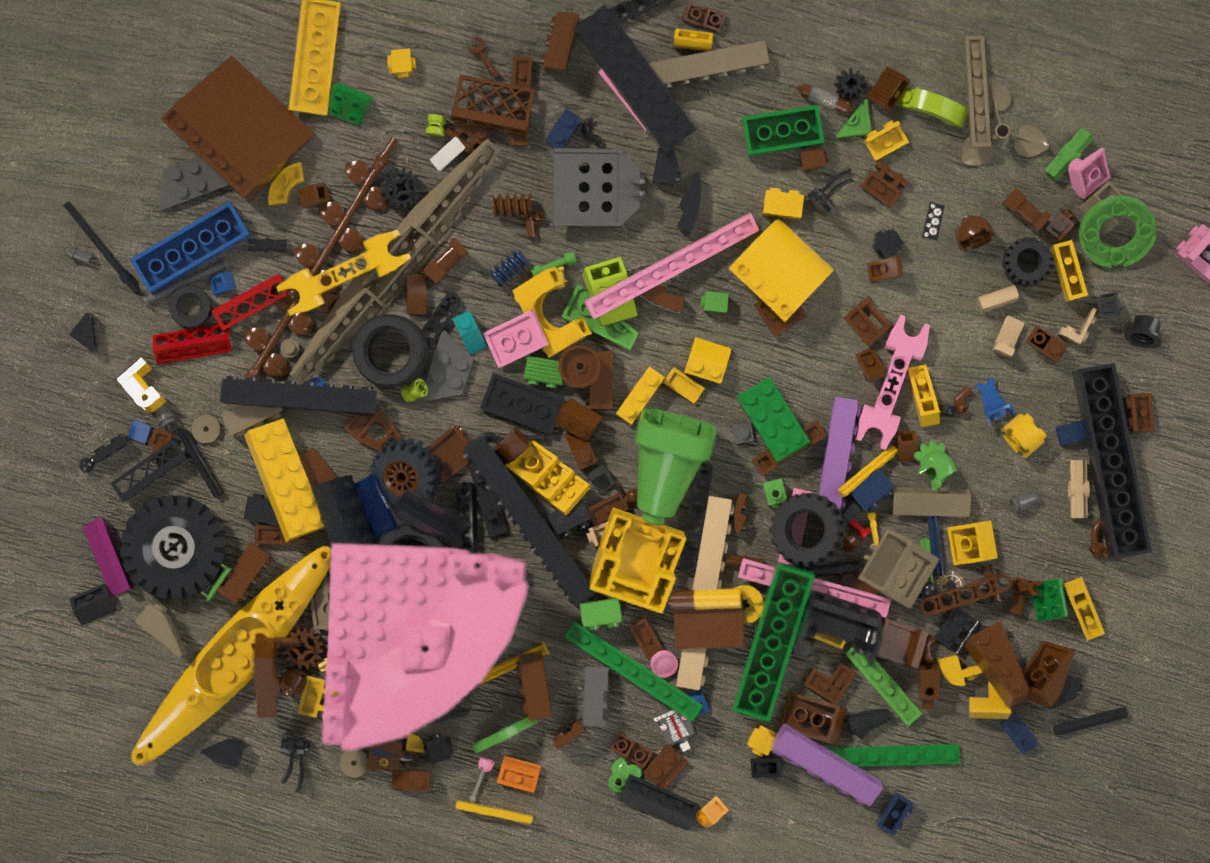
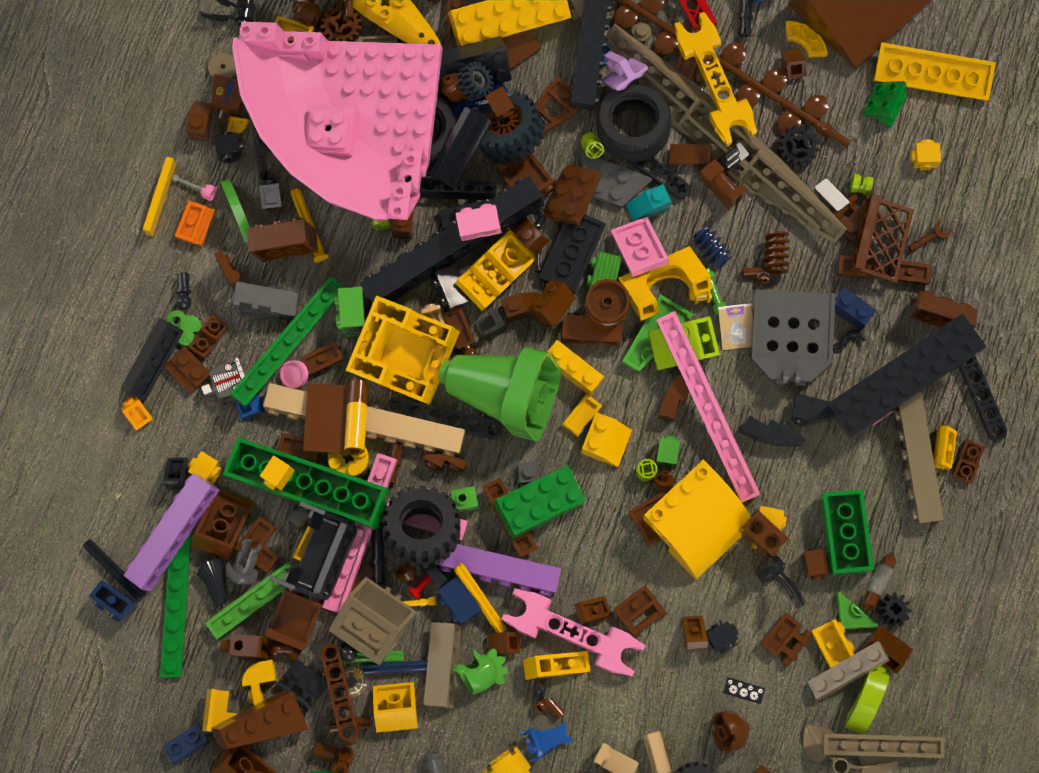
camera: 90 degrees right, 10 degrees down
(342, 364) = (622, 71): none -> lavender bracket
(366, 516) = (467, 77): none -> black bush
(369, 528) = (450, 88): none -> reddish brown head
(385, 483) = (499, 102): none -> reddish brown brick
(418, 253) = (733, 157): none -> sticker
(466, 406) = (572, 194): none -> reddish brown plate
(483, 703) = (270, 194): none -> black bracket
(515, 494) = (478, 222): none -> bright pink brick
(587, 241) = (736, 326): none -> sticker
(599, 777) = (183, 301): none -> black pin
(734, 321) = (643, 470): none -> lime wheel
(734, 658) = (294, 446): none -> reddish brown plate
(744, 304) = (663, 481): none -> reddish brown tile
(769, 669) = (276, 473): none -> yellow brick
(789, 206) = (767, 530): none -> reddish brown brick
(856, 694) = (243, 569): none -> dark grey piece
(861, 819) = (109, 565): none -> black axle
(912, 125) = (848, 671): none -> dark tan plate

